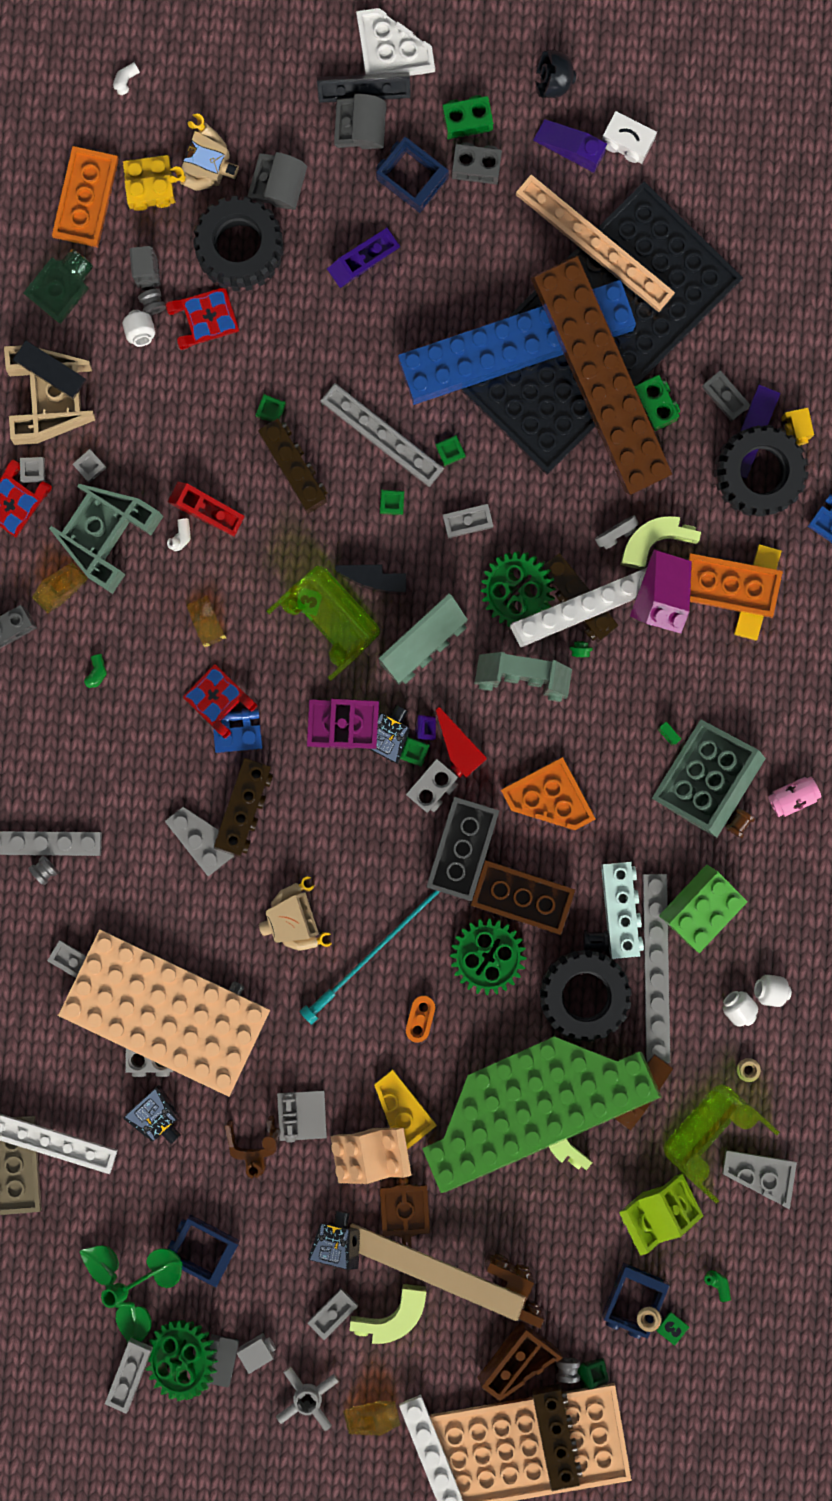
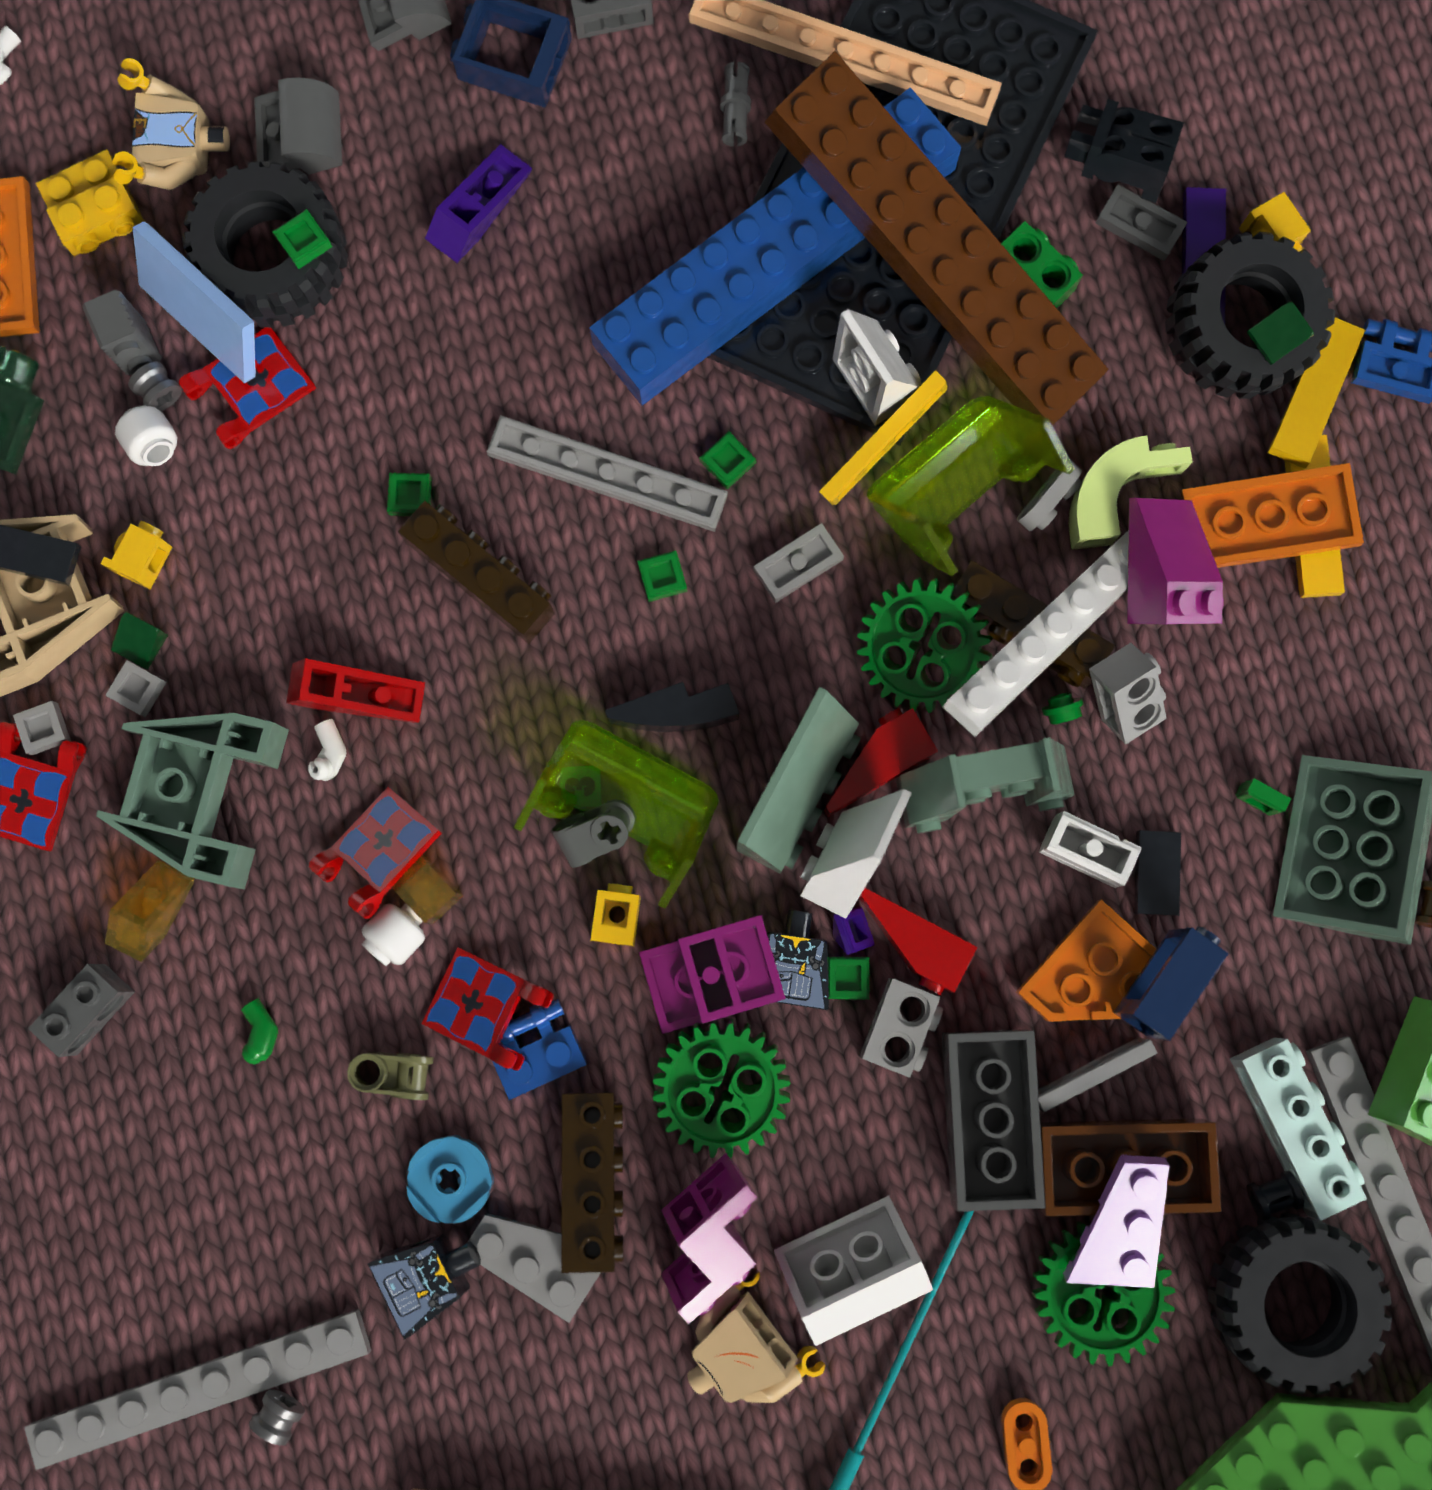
camera: 20 degrees left, 5 degrees down
(98, 439) = (138, 640): none -> dark green slope
(114, 392) = (139, 554): none -> yellow brick
(141, 828) = (423, 1279): none -> torso
(160, 718) = (394, 1074): none -> olive piece
(166, 795) = (474, 1179): none -> dark azure plate
(183, 645) = (393, 934): none -> white head
(189, 264) = (195, 302): none -> light blue tile
(192, 597) = (379, 847): none -> red flag
(260, 252) = (302, 239): none -> green tile
(295, 678) = (603, 927): none -> yellow brick
(295, 860) = (711, 1245): none -> magenta bracket
(307, 628) = (589, 835): none -> dark grey piece
(343, 798) = (756, 1101): none -> green gear
(362, 901) = (852, 1270): none -> white slope
(437, 686) = (852, 852): none -> white slope
(479, 640) = (890, 752): none -> red slope
(507, 927) = (1126, 1230): none -> wing
(524, 845) = (1095, 1072): none -> light grey tile
(526, 249) = (735, 104): none -> dark grey pin
(537, 470) = (884, 438): none -> yellow tile
(545, 429) = (873, 366): none -> white slope
(565, 729) = (1090, 849): none -> white brick
(571, 499) = (957, 467): none -> clear neon green windscreen
(579, 810) = (1171, 982): none -> dark blue window
(599, 754) = (1158, 873): none -> black tile
(617, 653) = (1129, 692): none -> light grey brick
(732, 351) = (1125, 146): none -> black hips
(767, 488) = (1280, 332): none -> dark green slope
(785, 525) = (1315, 396): none -> yellow tile

